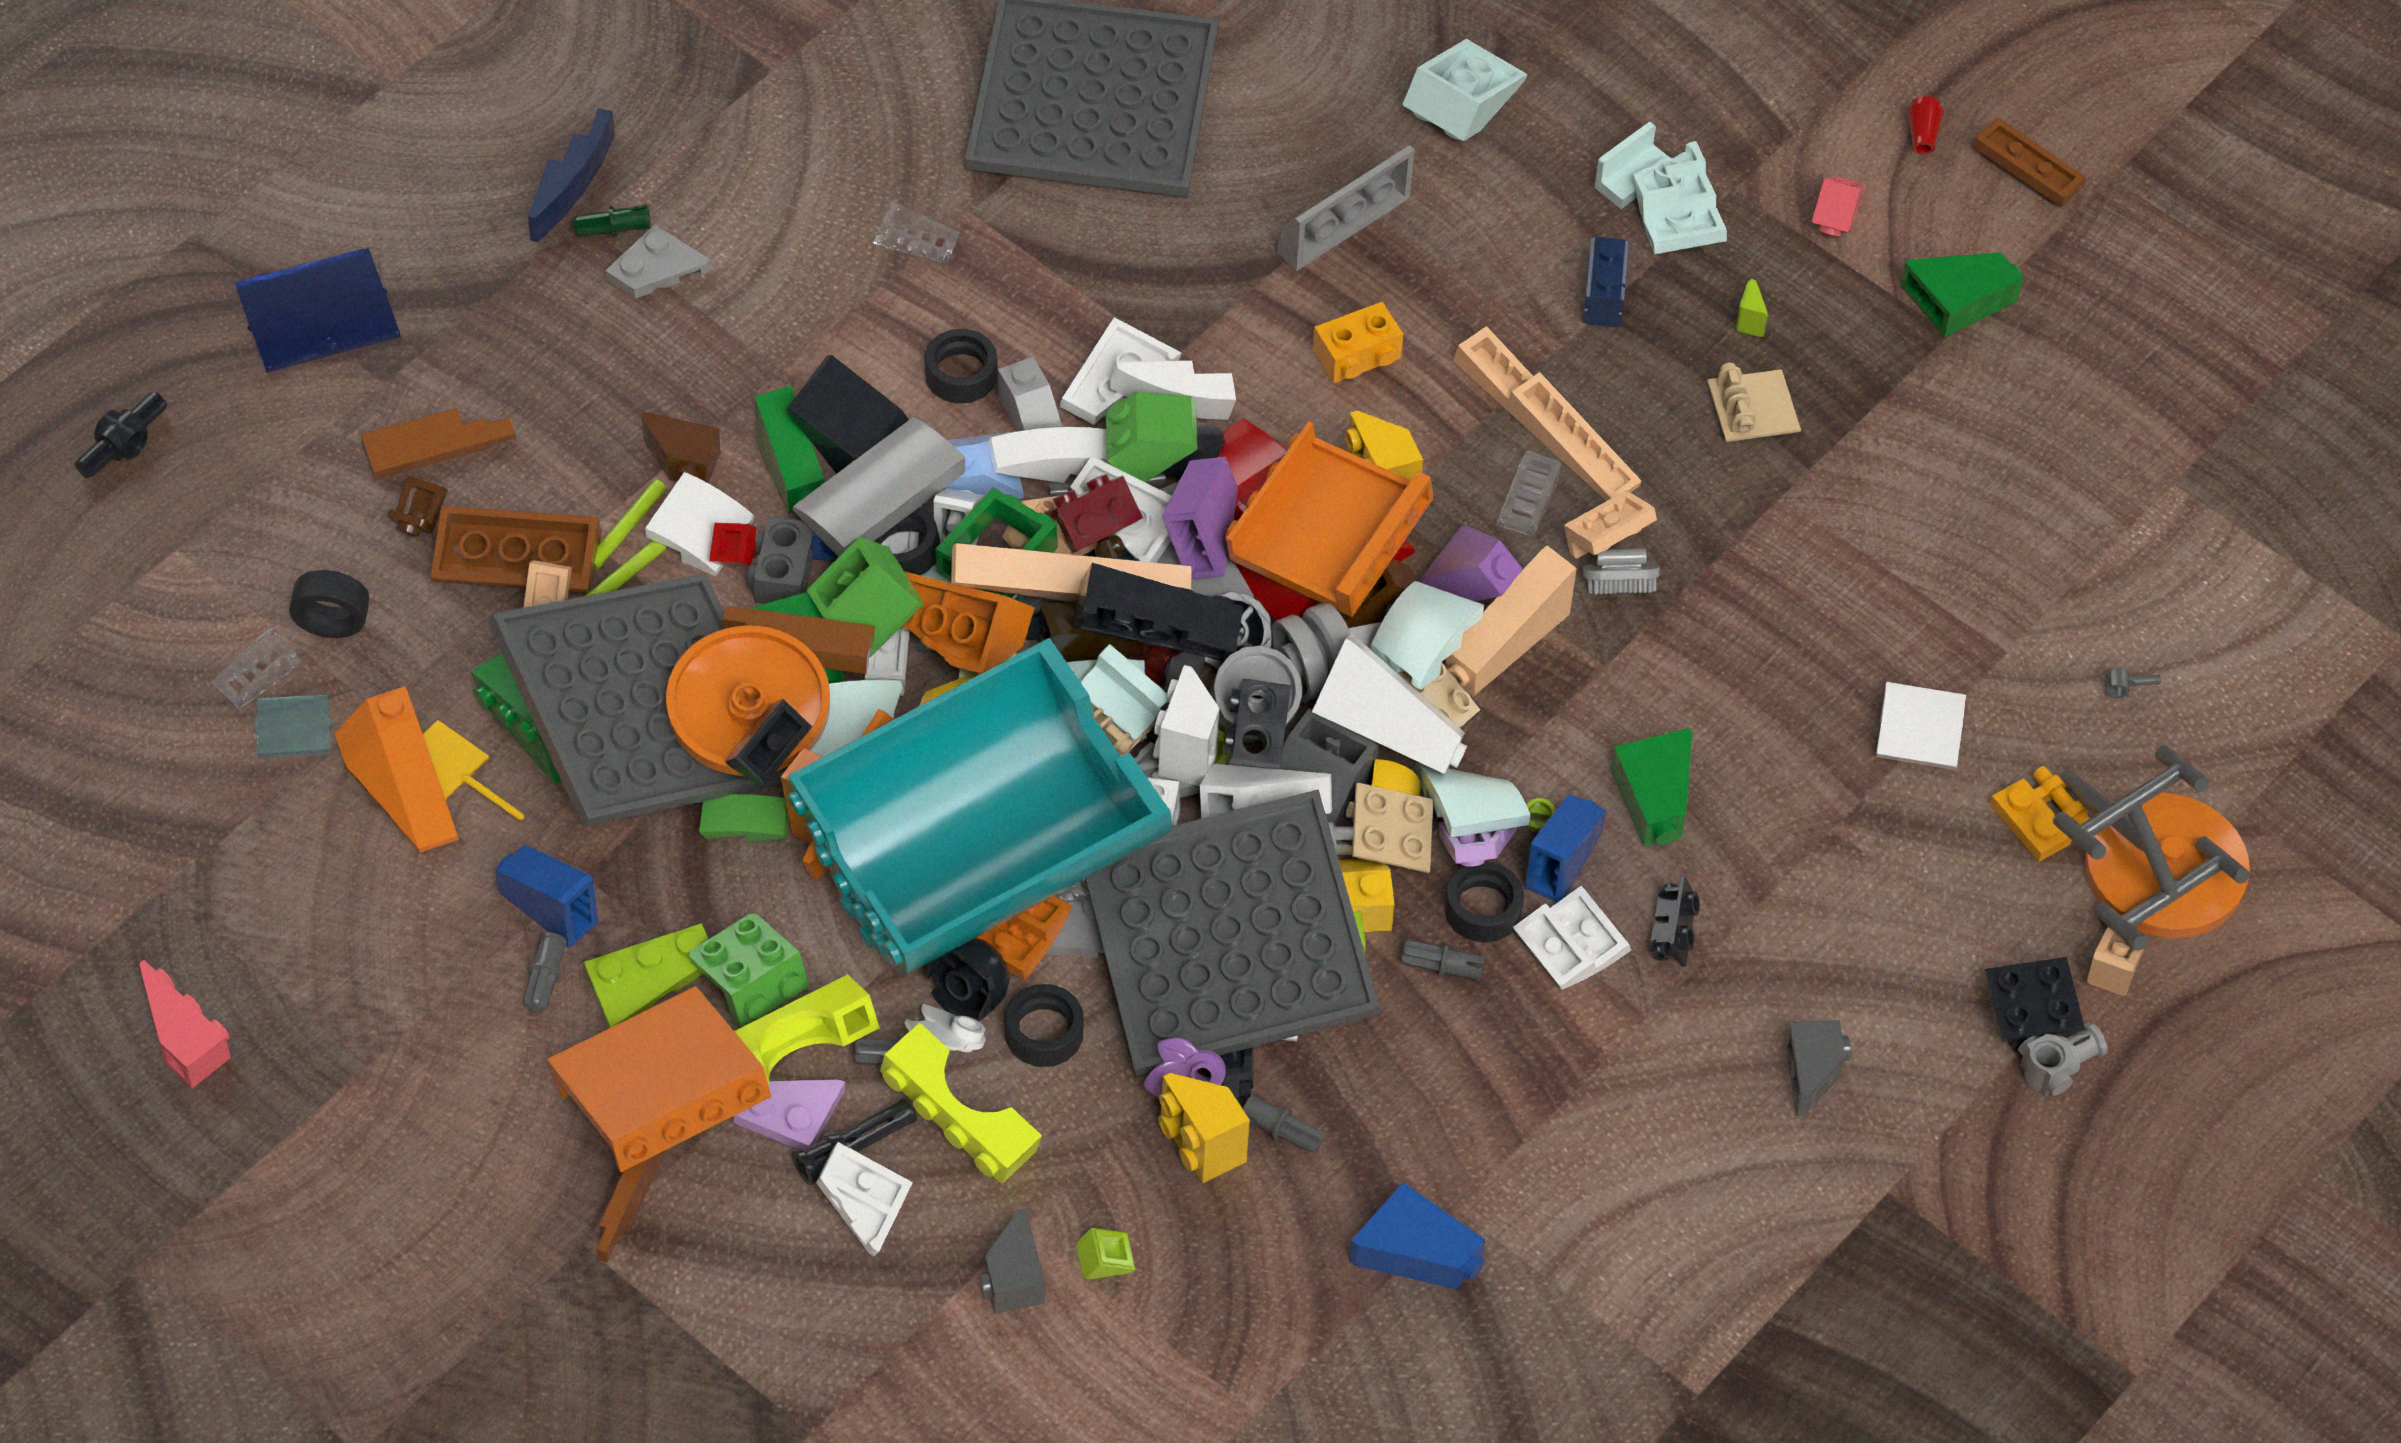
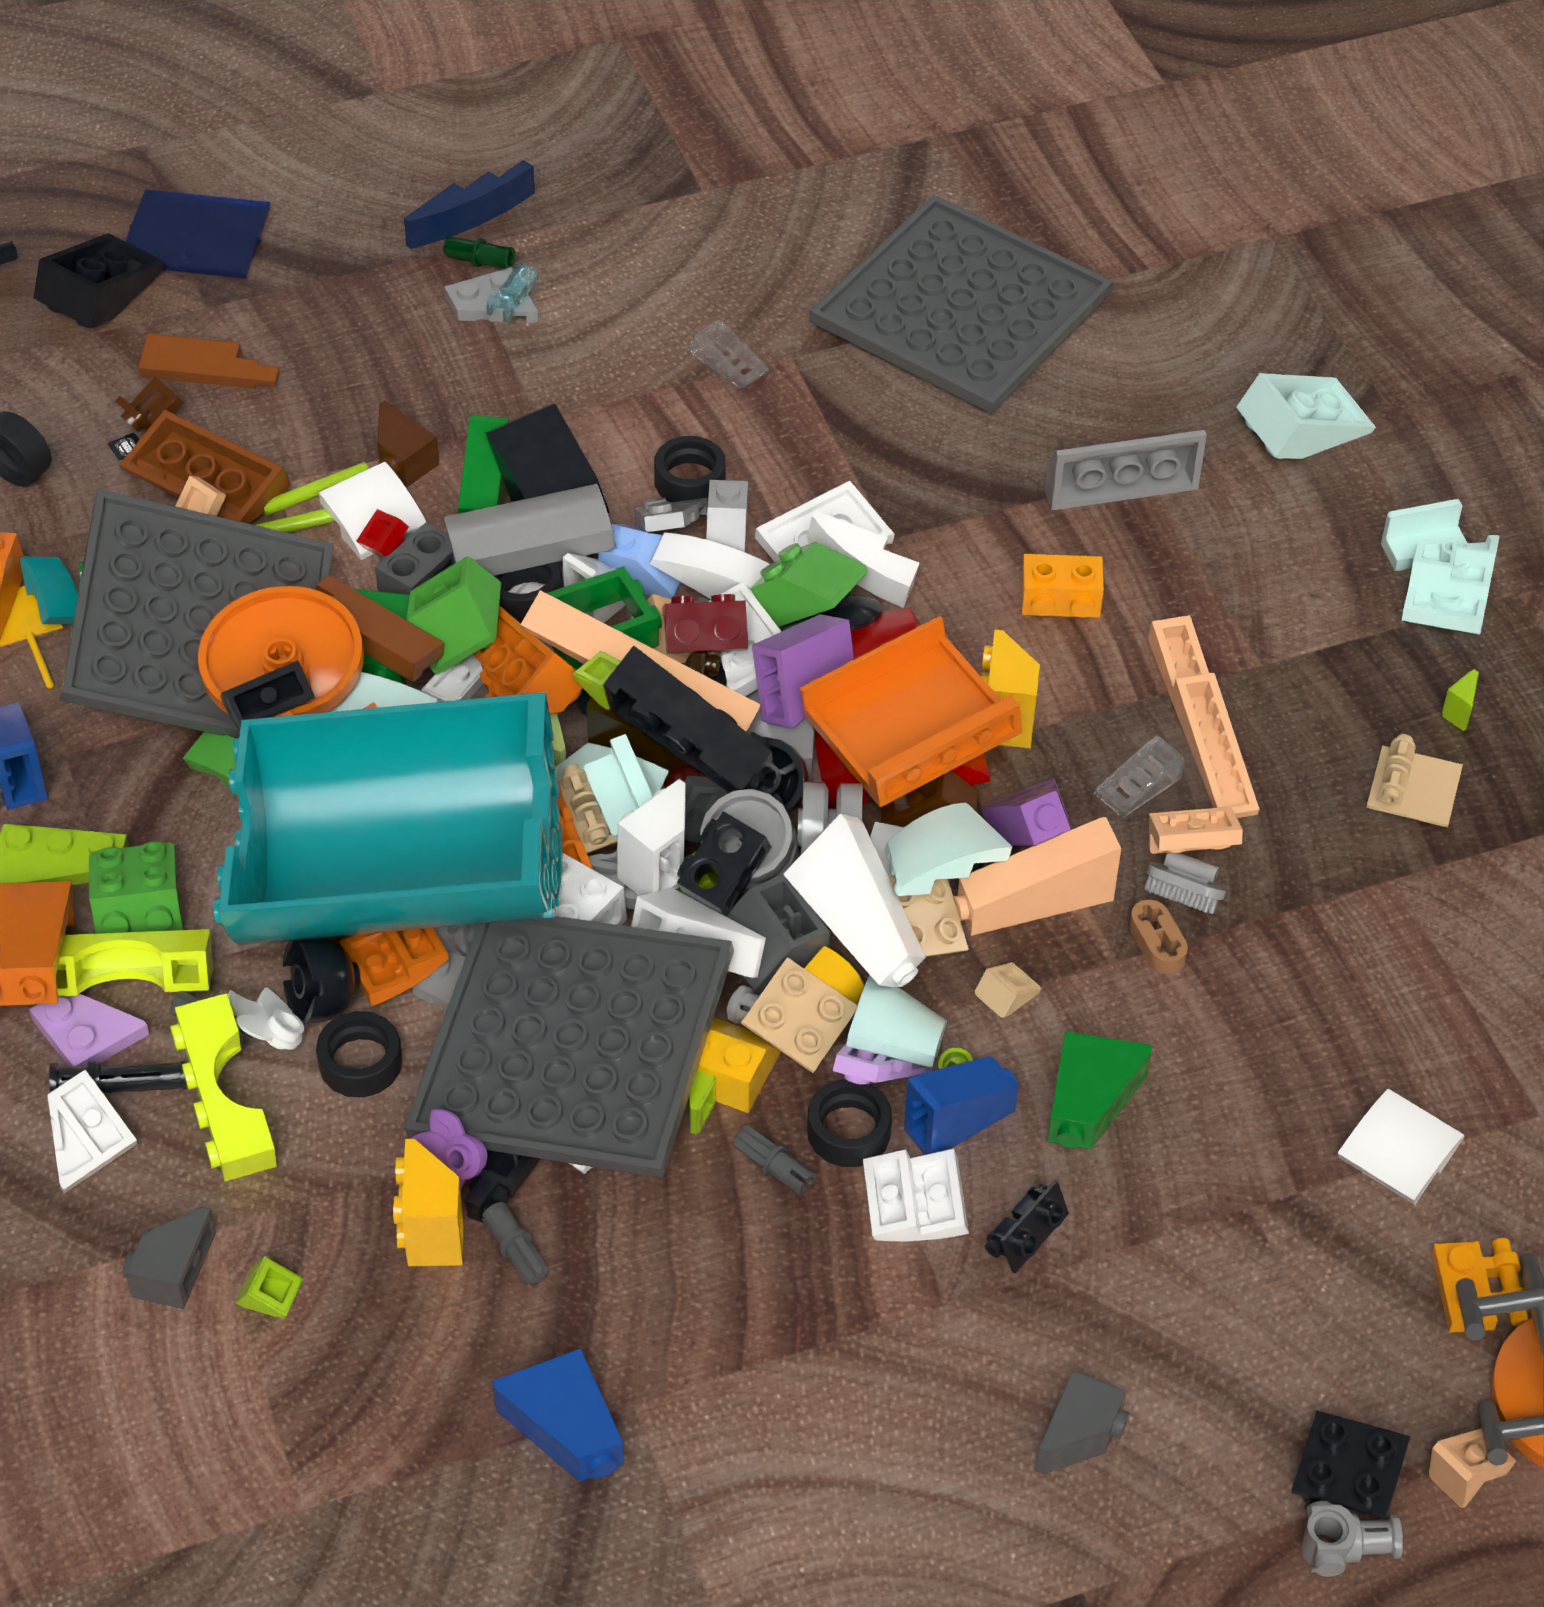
camera: 30 degrees right, 5 degrees down
(266, 398) = (94, 279): none -> black slope
(415, 556) = (123, 445): none -> black sticker
(452, 716) = (52, 586): none -> teal slope
(681, 249) = (512, 291): none -> clear light blue bar
(973, 419) = (664, 515): none -> light grey wing
(1053, 600) = (594, 674): none -> lime slope
(1533, 731) = (1006, 989): none -> tan slope
(1605, 282) = (1332, 622): dark blue brick -> none
(1628, 630) = (1165, 933): none -> medium nougat beam

